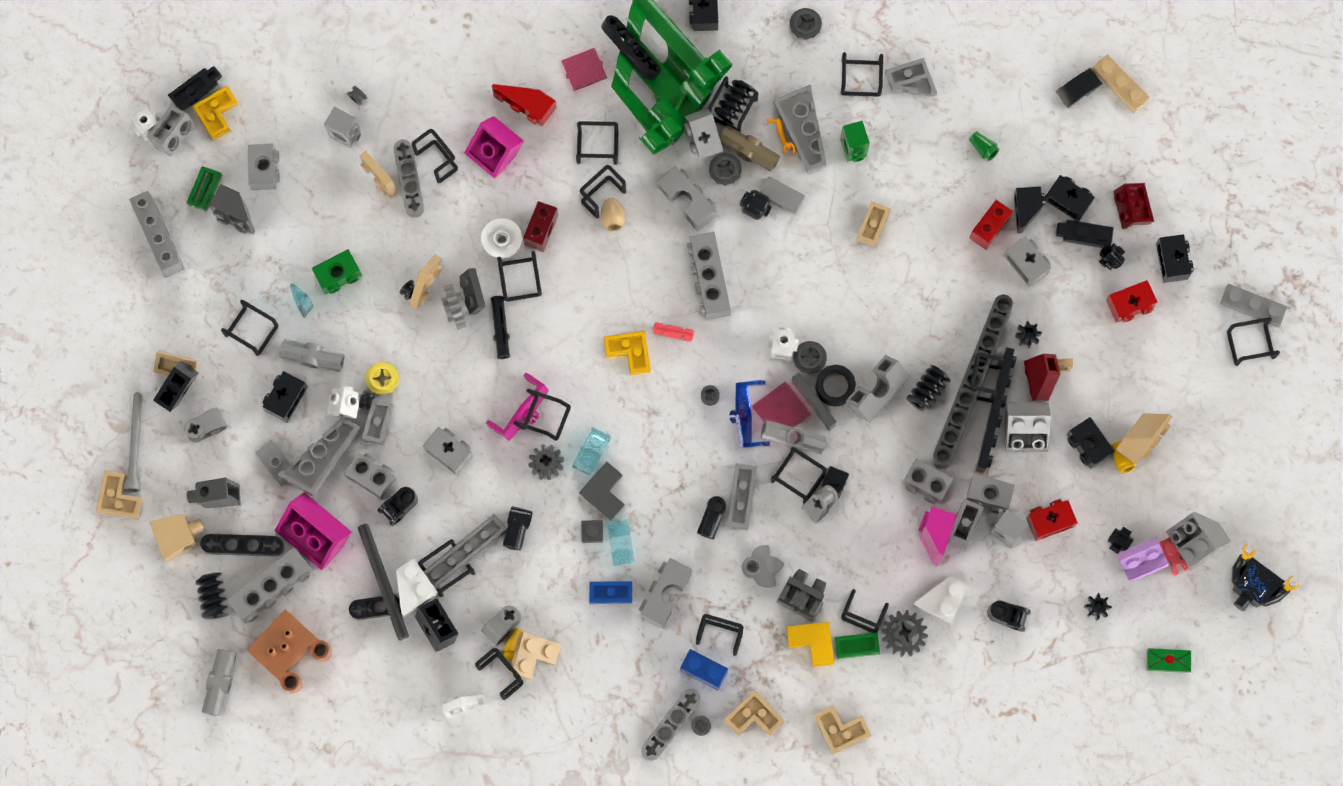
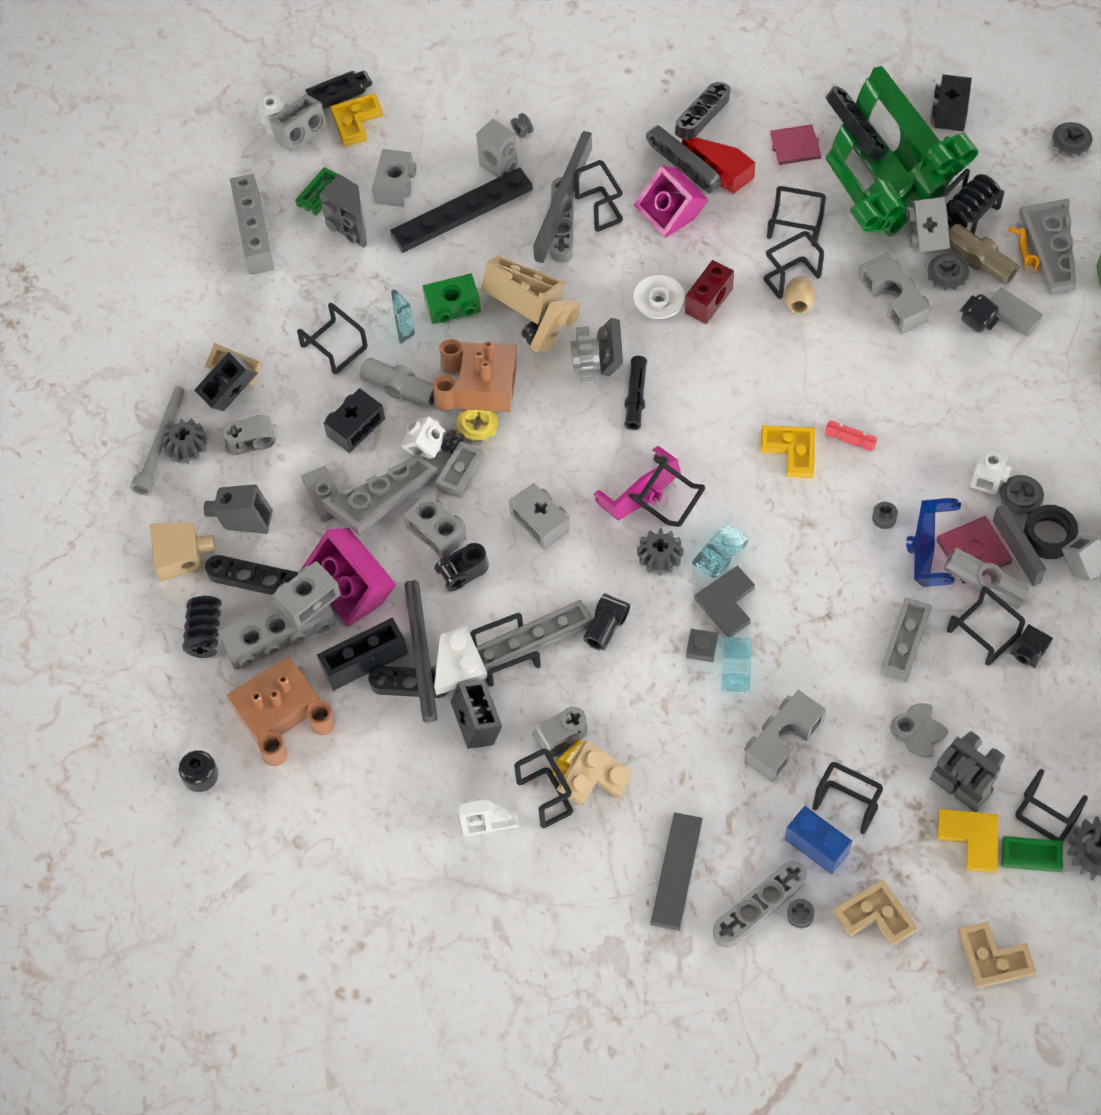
camera: 15 degrees right, 15 degrees down
(113, 502) = (115, 496): tan plate -> none
(148, 438) = (184, 440): none -> dark grey gear
(219, 682) = (181, 731): light grey piece -> none
(246, 717) = (198, 771): none -> black head
(286, 571) = (302, 608): none -> light grey brick
(323, 185) = (461, 210): none -> black plate
(340, 594) = (362, 653): none -> black brick
(379, 340) = (484, 377): none -> nougat piece
(383, 181) = (529, 201): tan plate -> none
(392, 255) = (521, 287): none -> tan wedge
(406, 163) = (562, 198): none -> dark grey tile
(496, 103) = (683, 159): none -> dark grey beam
(501, 55) = (699, 113): none -> black beam
(501, 264) = (693, 328): black piece -> none
(607, 712) = (676, 871): none -> dark grey tile
(610, 592) = (711, 721): blue plate -> none
(707, 244) = (910, 345): light grey brick -> none
(711, 520) = (861, 656): black piece -> none
(820, 503) = (1009, 663): light grey piece -> none

